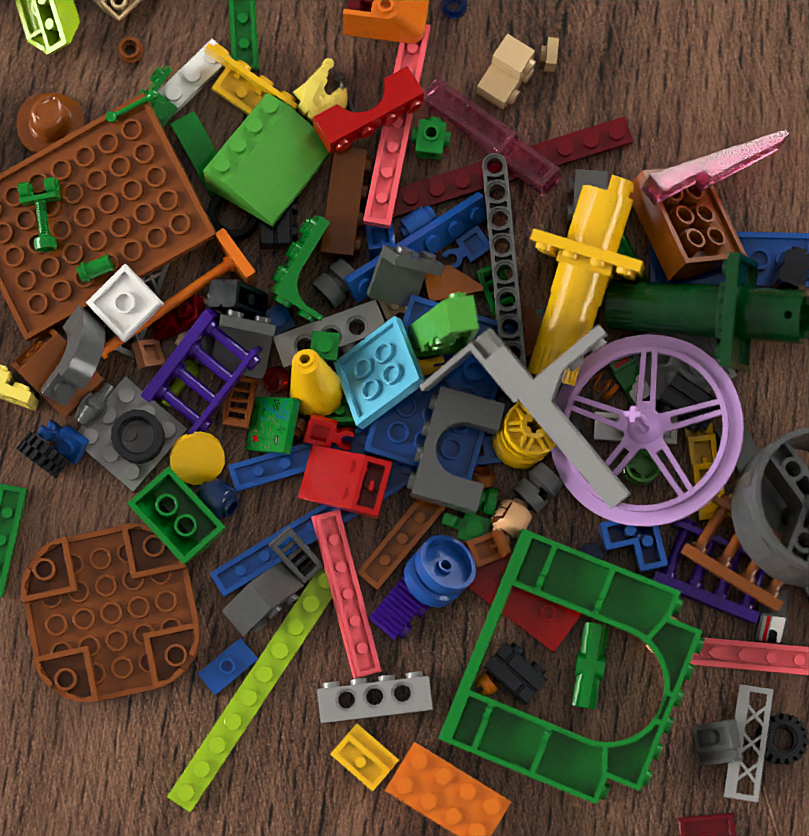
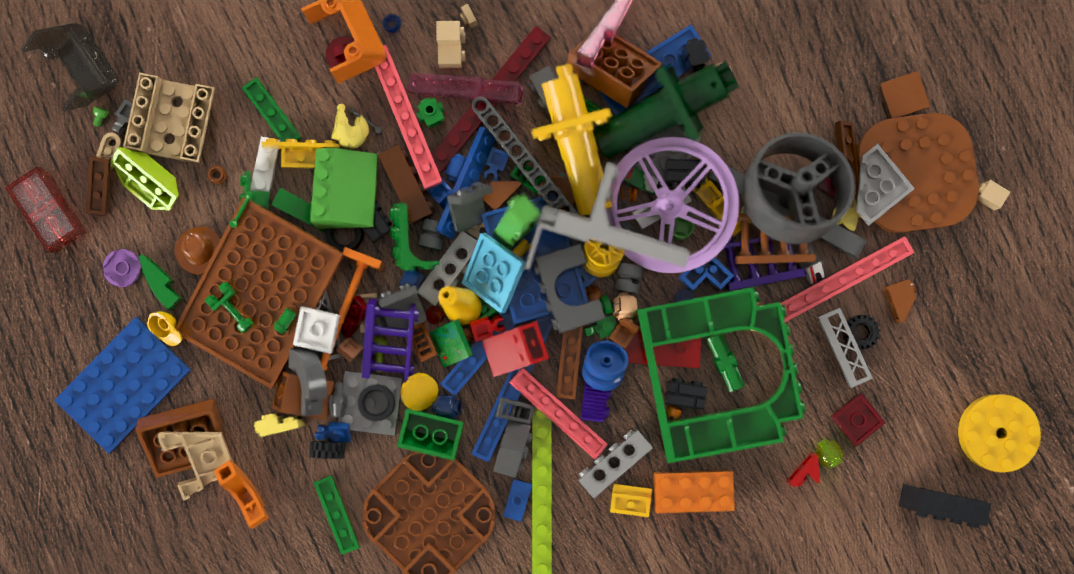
camera: 35 degrees left, 5 degrees up
(237, 297) = (380, 283): black brick -> none
(326, 345) = (451, 277): green plate -> none
(341, 127) = (374, 141): red arch -> none
(717, 742) = (827, 359): dark grey plate -> none

